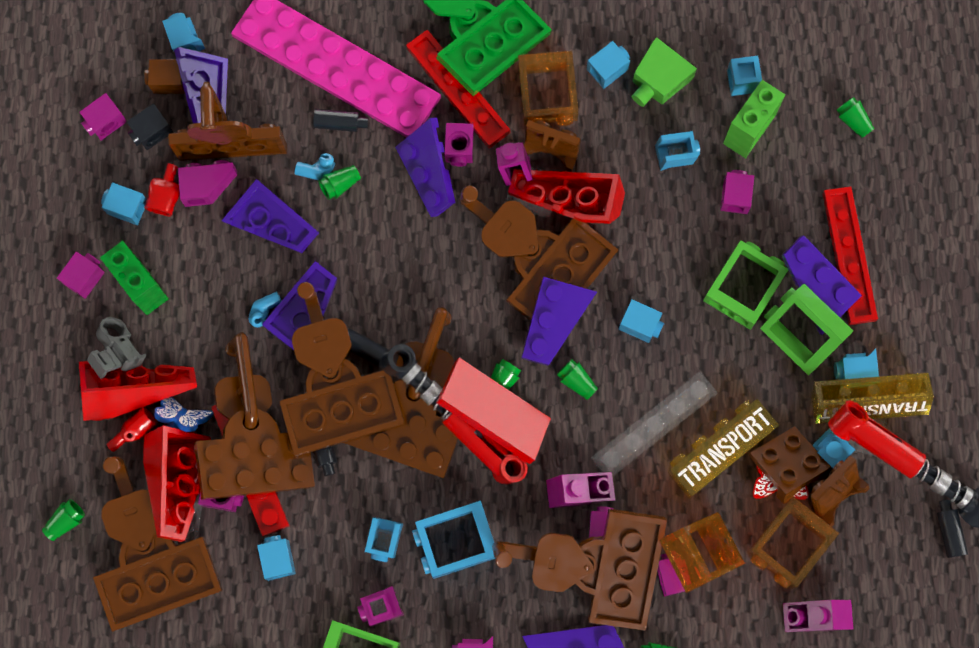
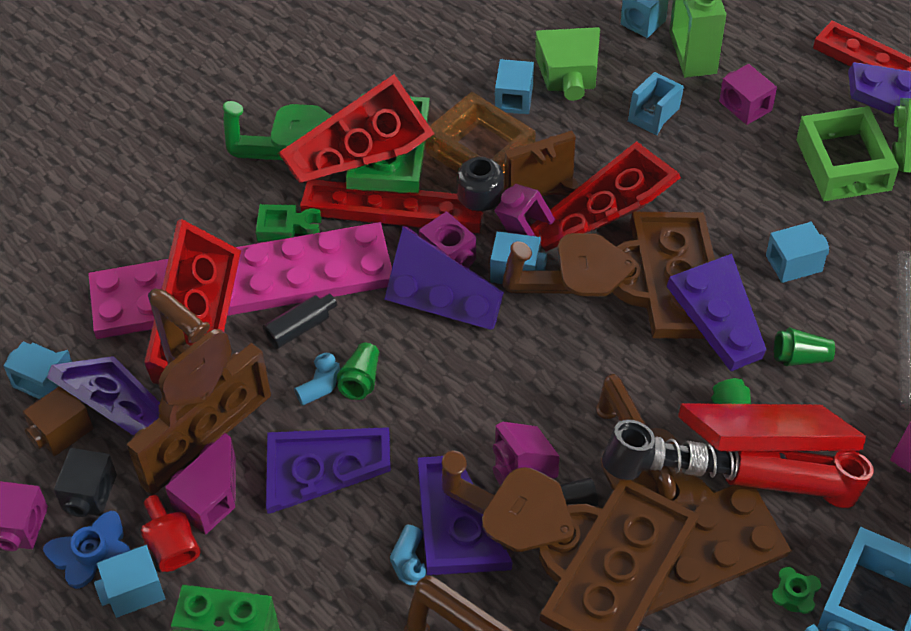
camera: 45 degrees left, 25 degrees down
(124, 167) = (87, 548): none -> blue animal
(283, 68) = (201, 278): none -> red slope
(363, 309) = (522, 447): none -> magenta slope
(388, 46) = (284, 222): none -> green plate
(420, 506) = (793, 601): none -> green plate
(475, 31) = (367, 131): none -> red wedge
(489, 187) = (502, 250): none -> dark azure brick
(504, 124) = (480, 184): none -> black head

